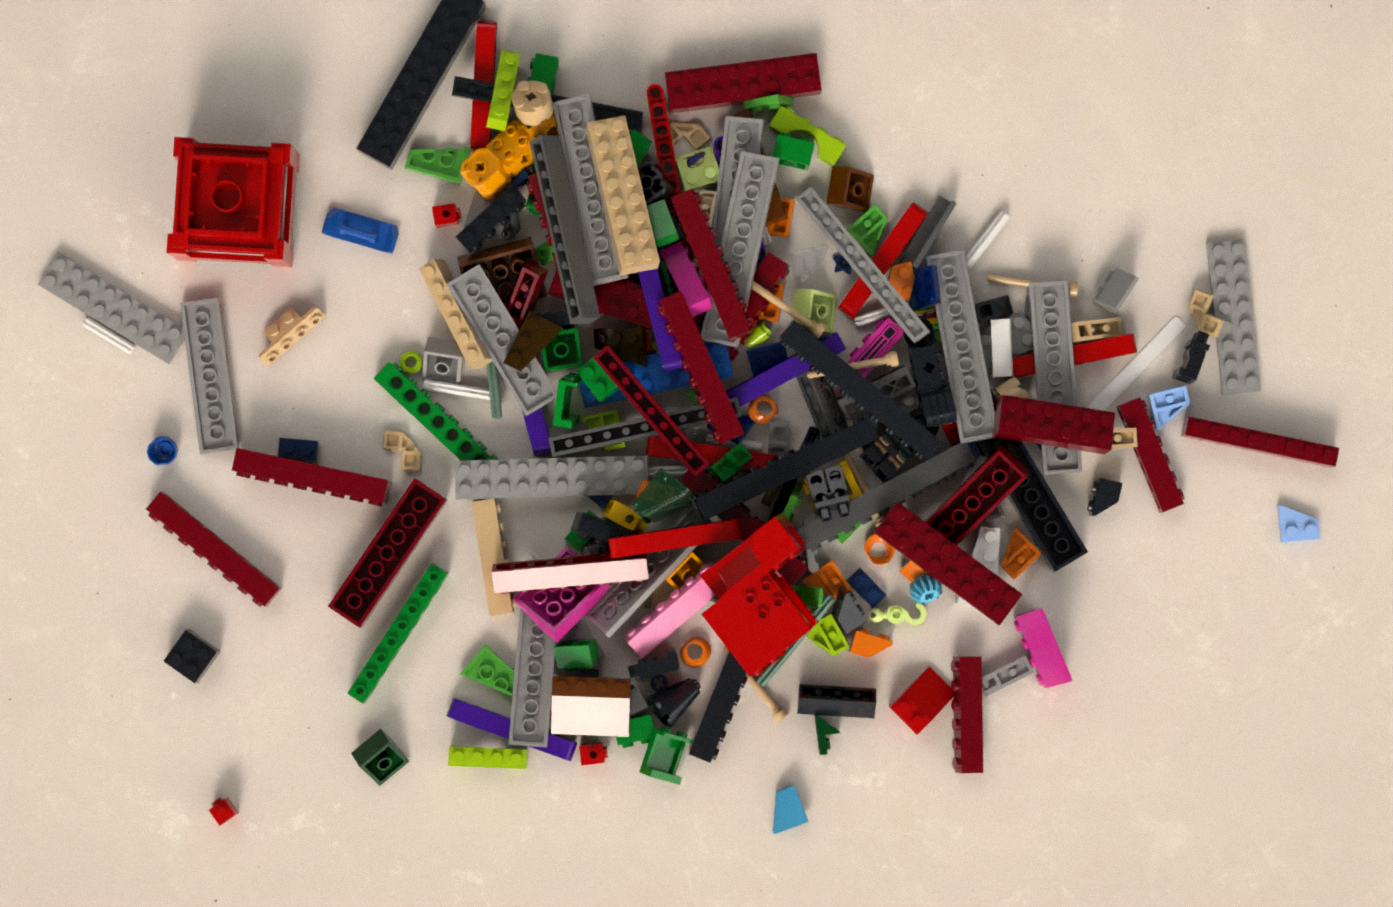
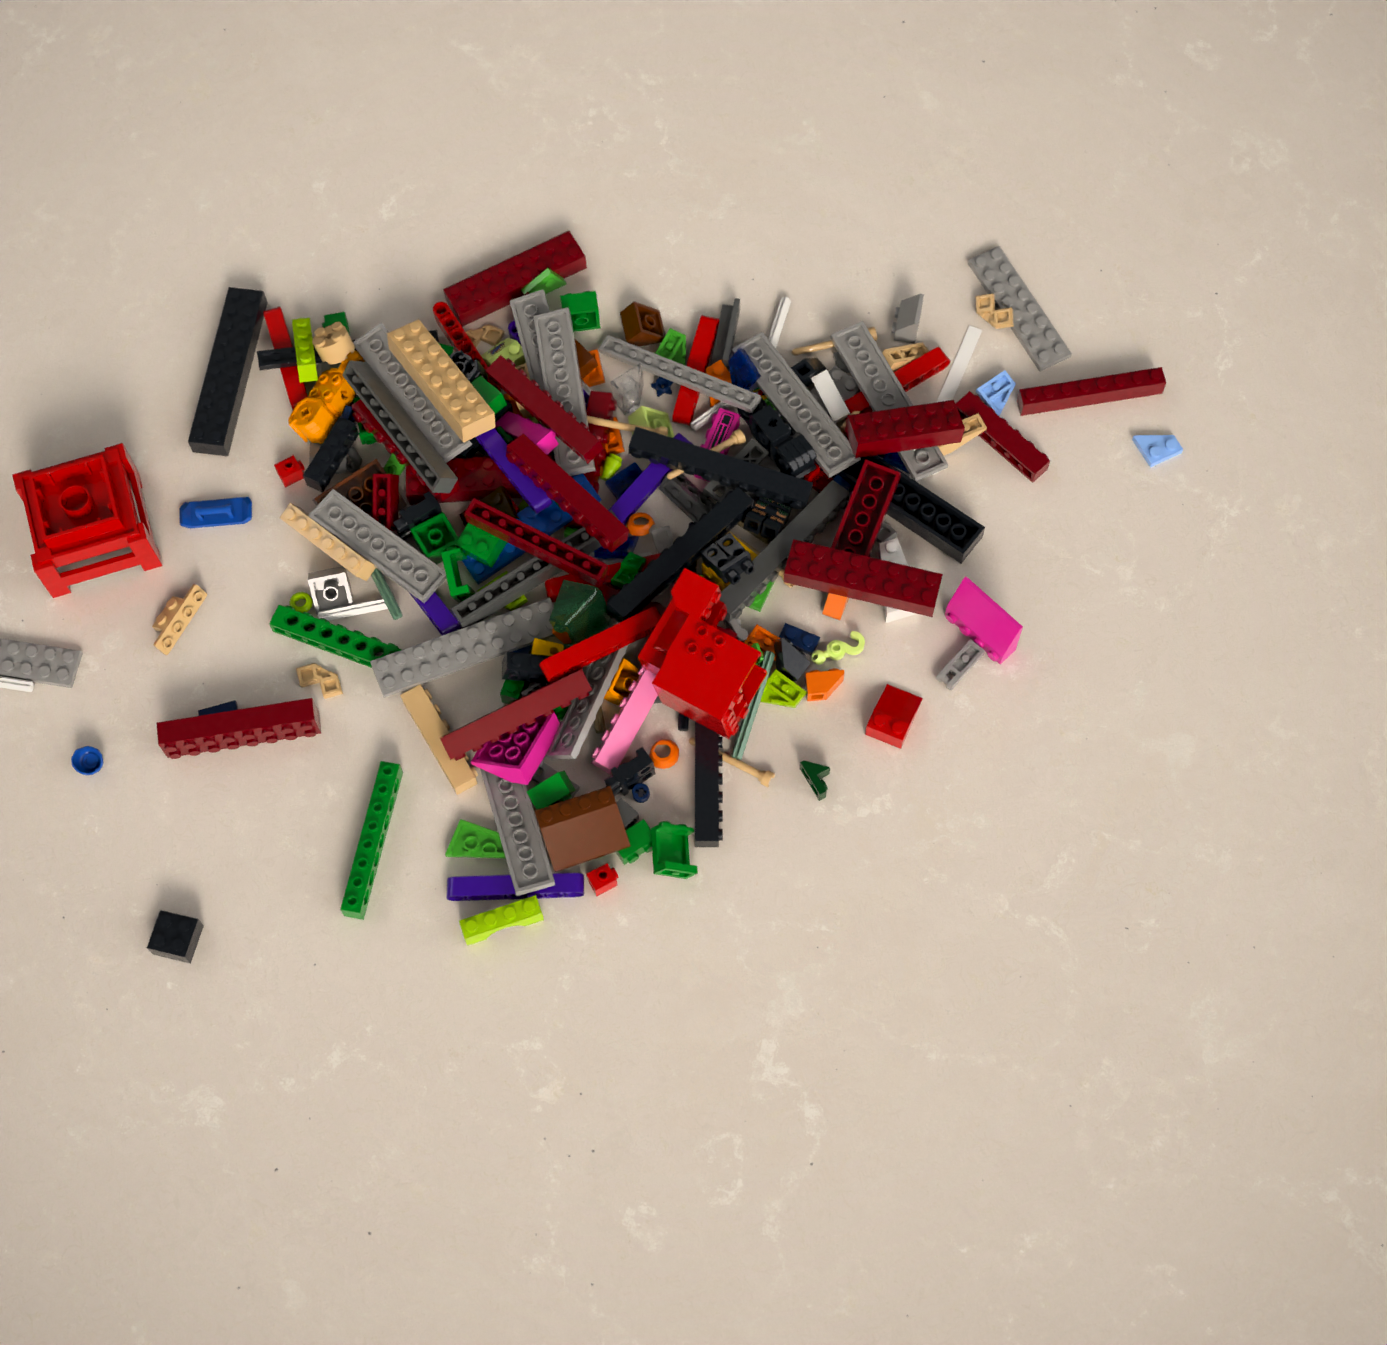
camera: 15 degrees left, 20 degrees down
(209, 376) = (113, 682): light grey plate -> none
(214, 549) = (165, 831): dark red brick -> none
(223, 810) = (254, 1073): red brick -> none
(379, 757) = (395, 961): dark green slope -> none
(387, 553) = (336, 771): dark red brick -> none
(440, 164) = (268, 434): bright green wing -> none
(531, 340) = (403, 531): dark brown wing -> none
(674, 701) = (660, 800): black cone -> none
(788, 810) = (811, 859): dark azure slope -> none
(828, 147) = (610, 300): lime arch -> none
(836, 701) = (814, 742): black brick -> none
(878, 560) = (796, 592): orange piece -> none
(925, 589) = (853, 614): medium azure gear -> none
(967, 714) = (941, 709): dark red brick -> none
(1019, 555) = (925, 555): orange wing -> none
(1105, 495) = (978, 482): black slope -> none
(1193, 358) = (1000, 346): black hips -> none

